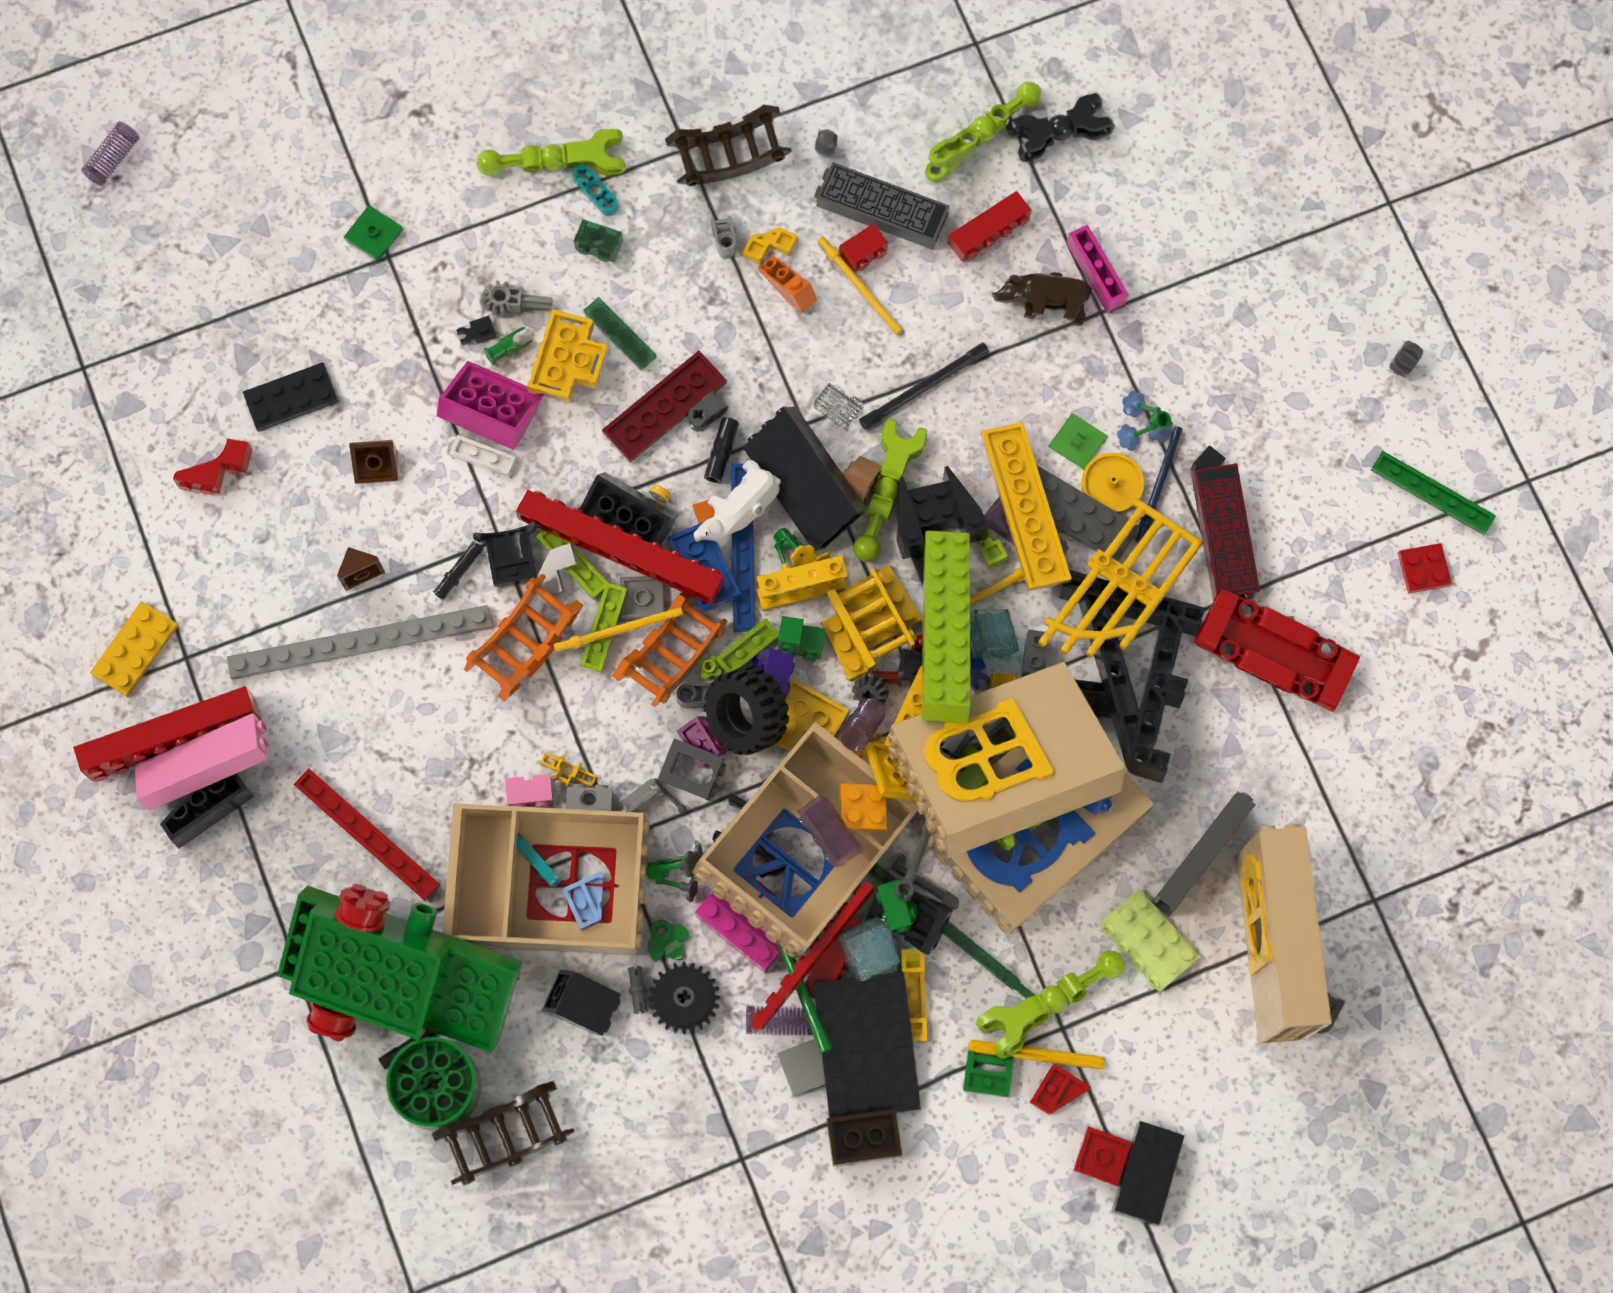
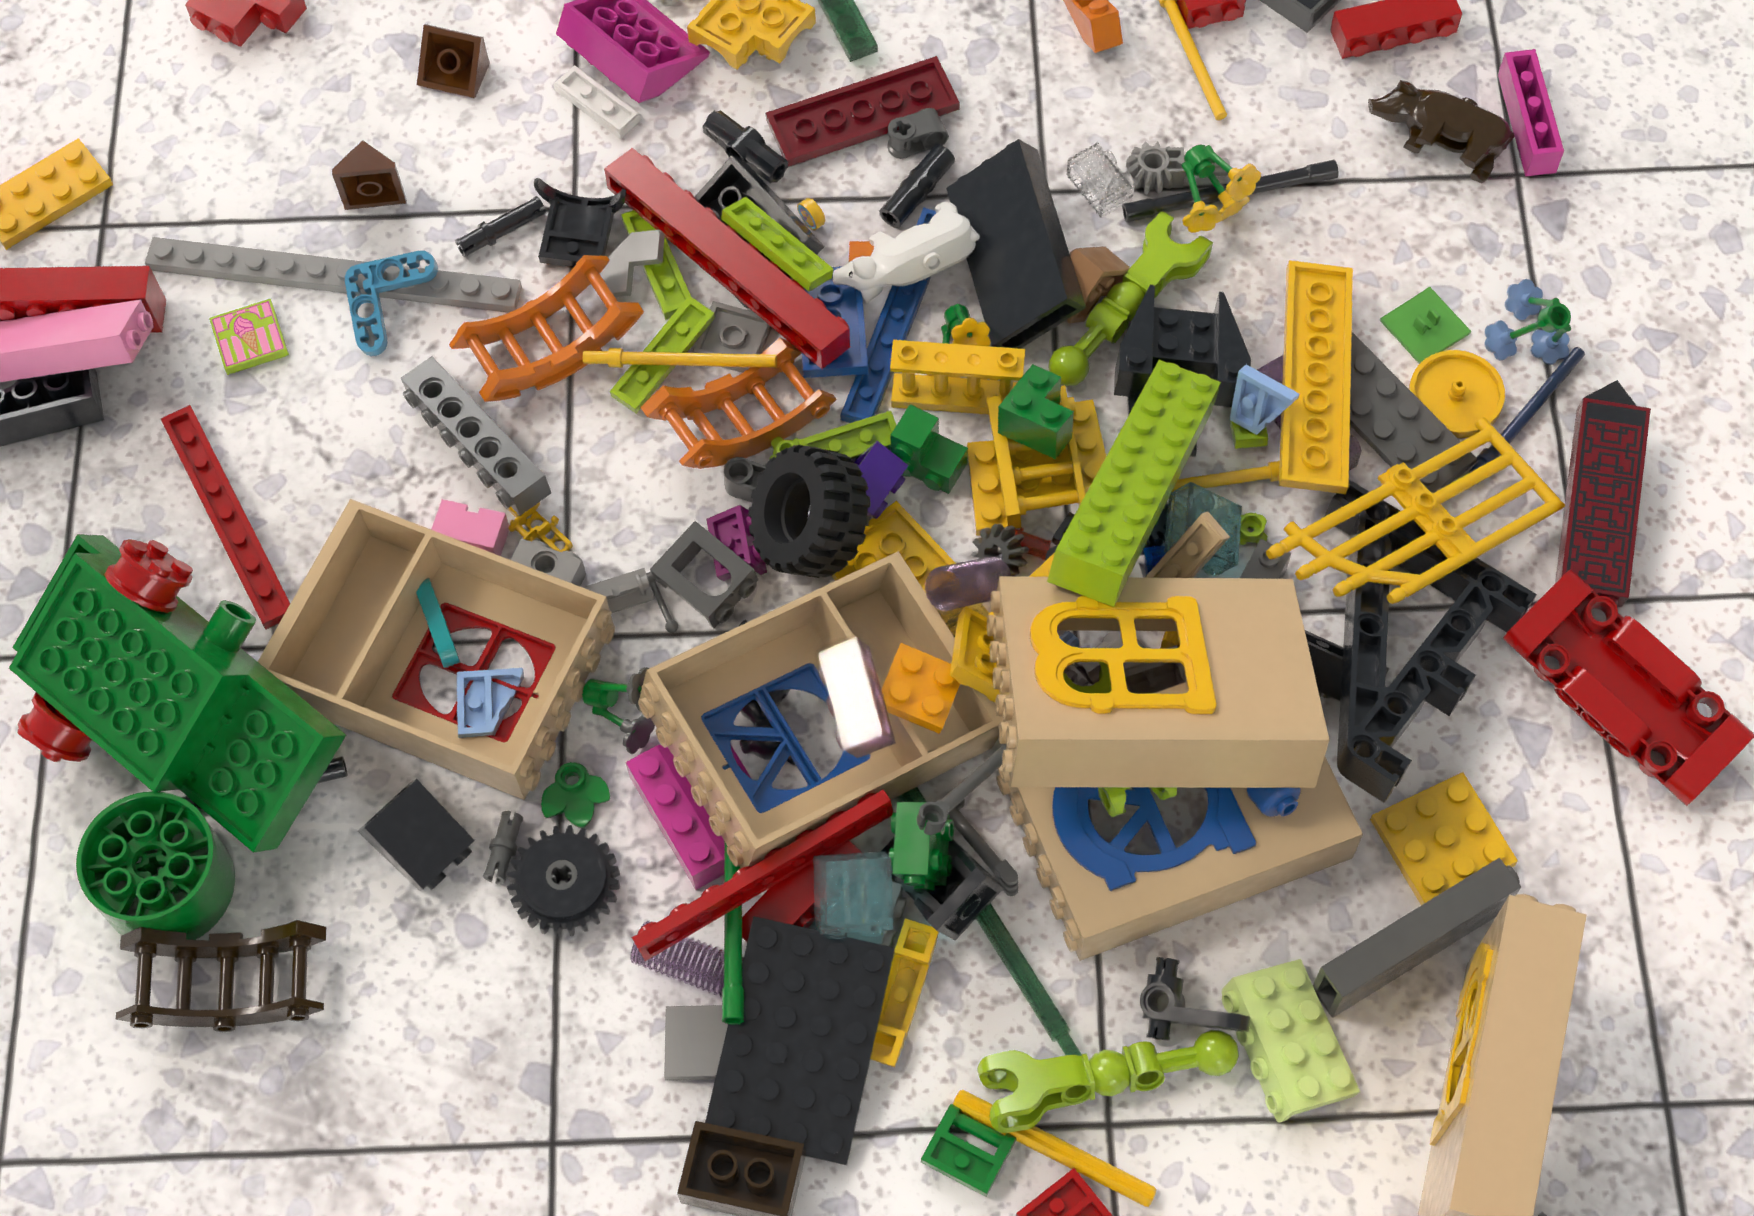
camera: 25 degrees right, 10 degrees down
(323, 705) = (248, 336): none -> tile
(395, 641) = (377, 284): none -> dark azure beam
(461, 696) = (461, 418): none -> brick
(597, 458) = (745, 145): none -> black piece
(652, 529) = (777, 244): none -> lime plate
(861, 599) = (1034, 415): none -> green brick
(881, 381) = (1167, 165): none -> light grey gear
(901, 377) = (1200, 162): none -> yellow plant
(990, 661) = (1191, 550): none -> tan tile
(997, 537) = (1258, 399): none -> light blue wing
(1019, 614) = (1254, 521): none -> lime plate
(1067, 932) = (1166, 981): none -> black piece
(1198, 783) = (1441, 837): none -> yellow plate

